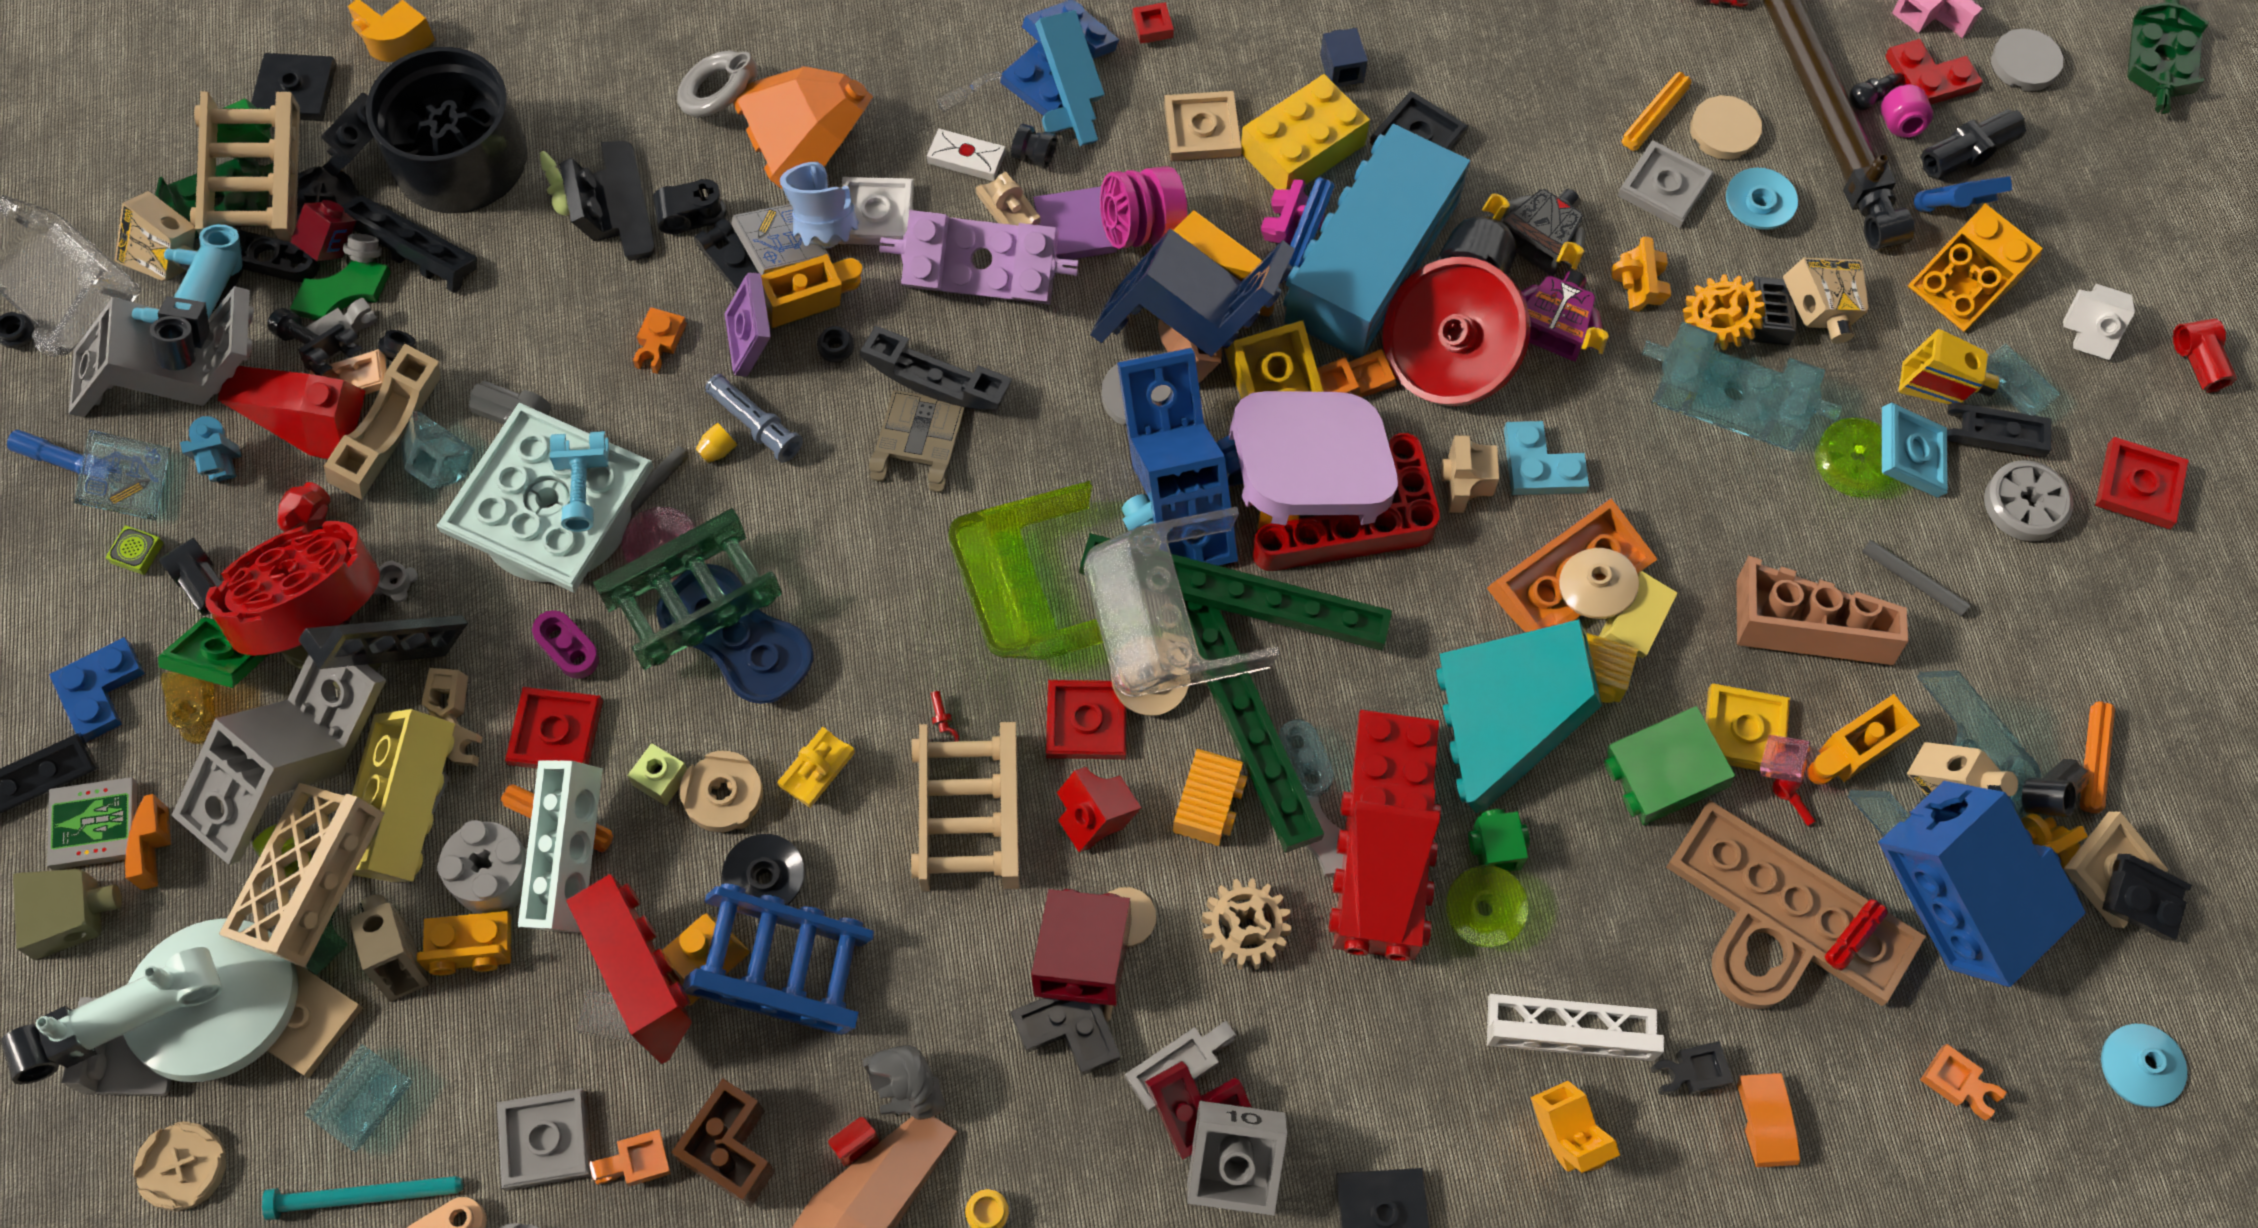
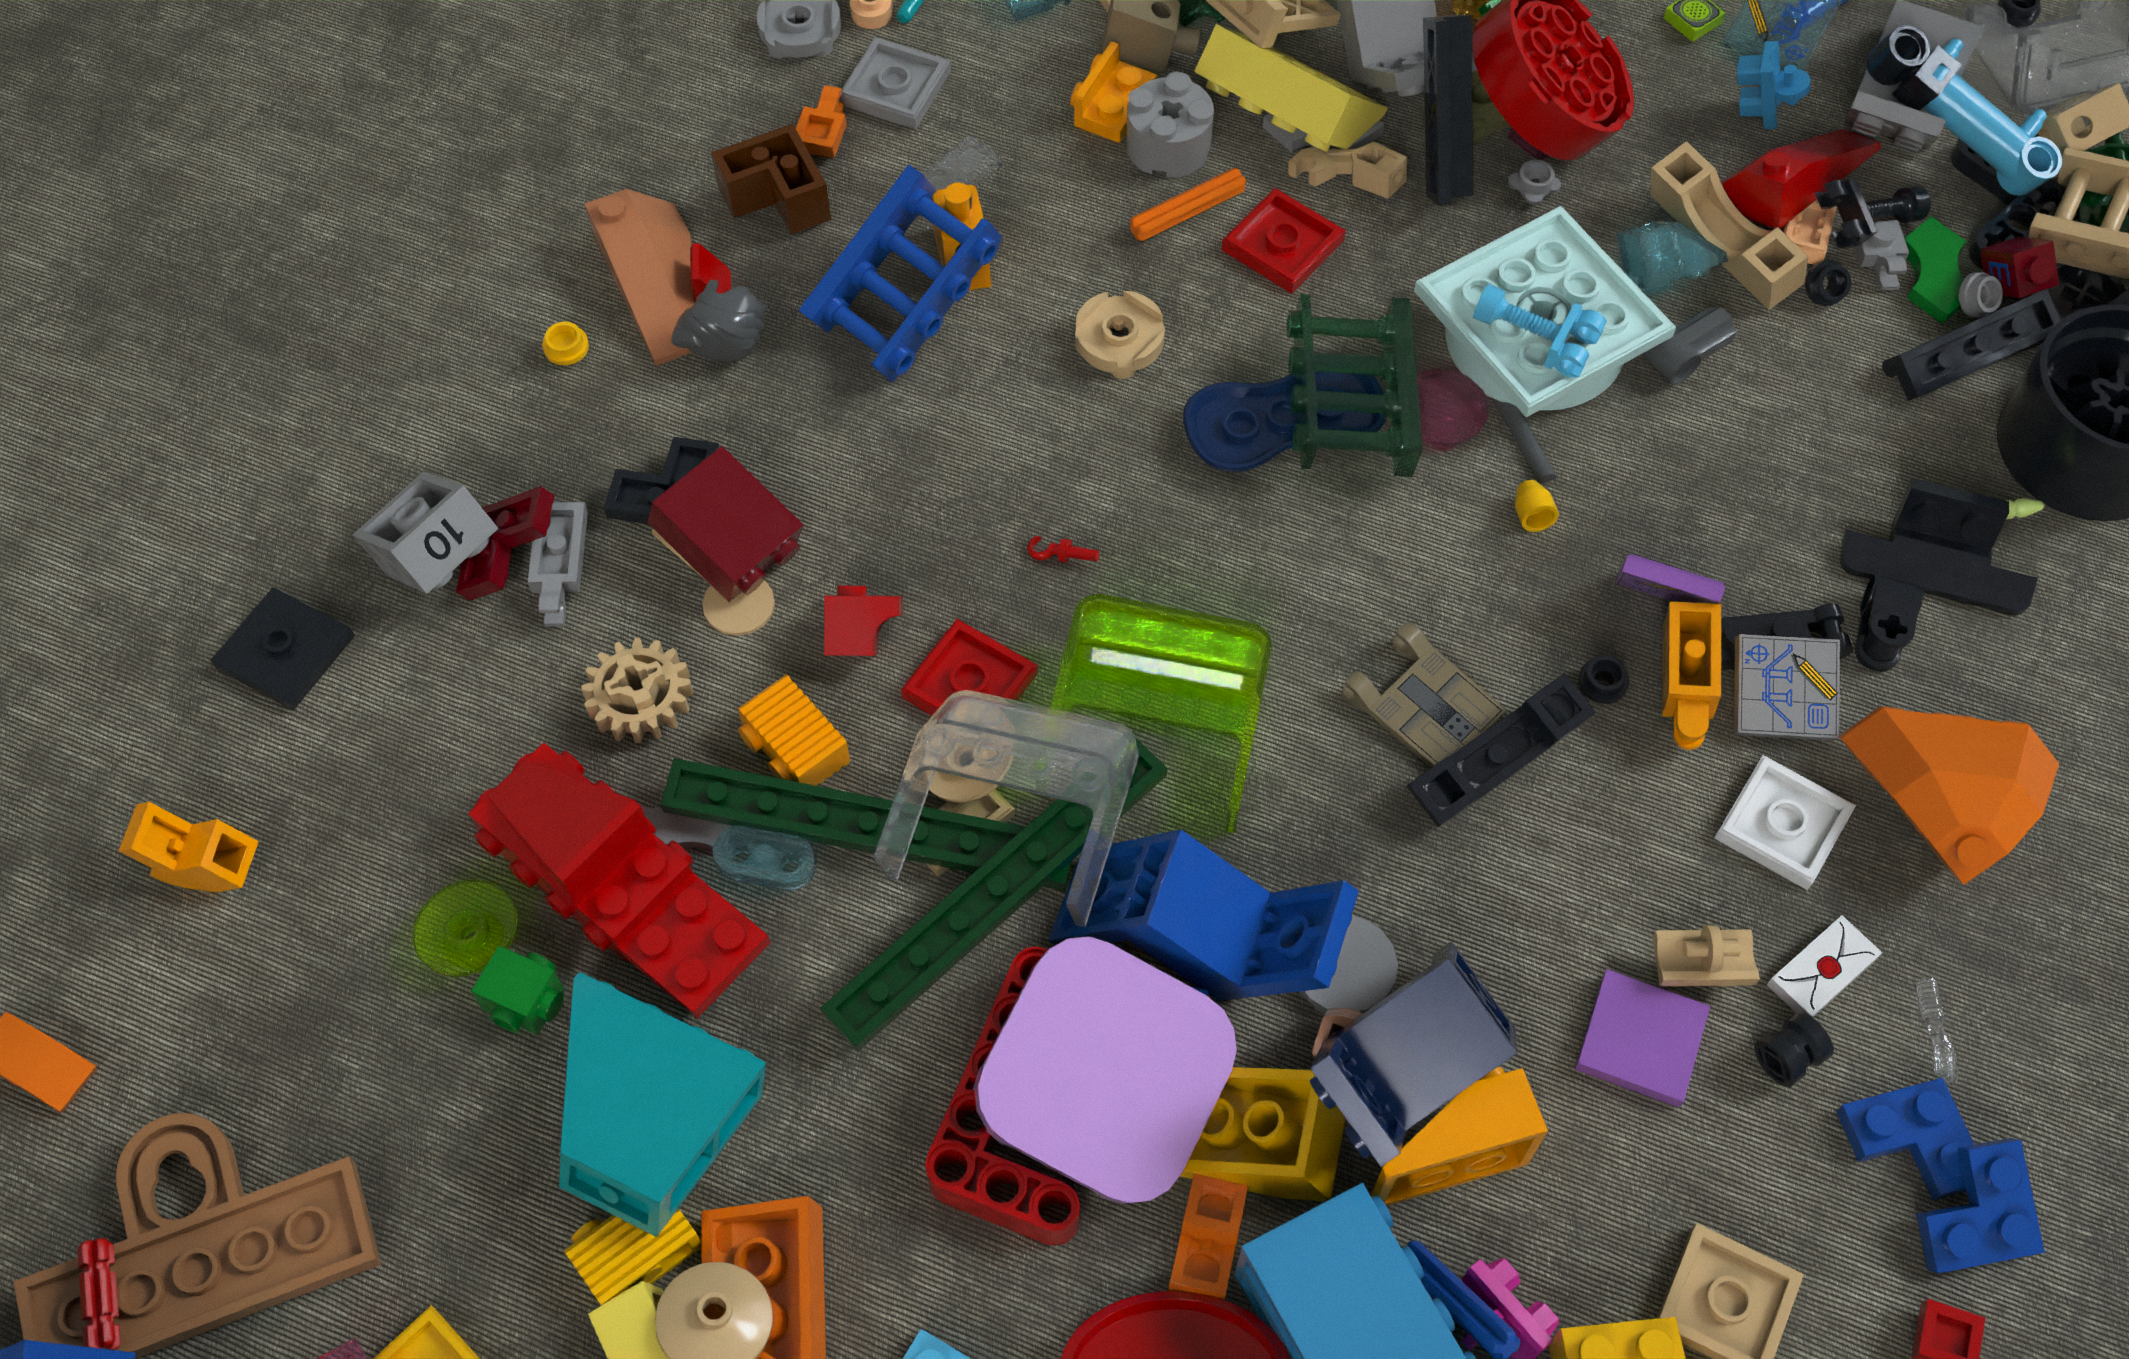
camera: 125 degrees right, 5 degrees down
(193, 571) = (1644, 40): black piece -> none
(302, 507) = (1659, 133): red rock -> none
(559, 843) = (1143, 171): light aqua brick -> none
(567, 646) = (1365, 277): magenta plate -> none
(632, 965) = (980, 150): red slope -> none
(658, 334) = (1714, 522): orange plate -> none
(660, 785) = (1175, 290): yellowish green plate -> none
(741, 70) = (2078, 755): light grey piece -> none
(761, 855) = (1008, 309): black dish -> none
(764, 426) = (1528, 556): sand blue pin -> none
(816, 767) = (1084, 410): yellow hips -> none
(819, 212) = (1805, 721): light blue hat -> none
(941, 249) = (1667, 835): lavender brick -> none
(1002, 824) = (946, 559): tan fence -> none
(1073, 75) = (1890, 1156): dark azure piece -> none
(1141, 205) = (1604, 1099): dark pink wheel -> none
(1469, 472) = (978, 1279): tan brick -> none
(1573, 1038) = (267, 924): white fence -> none
(1668, 766) = (445, 1238): green brick -> none
(1699, 1067) = (140, 1028): black plate -> none

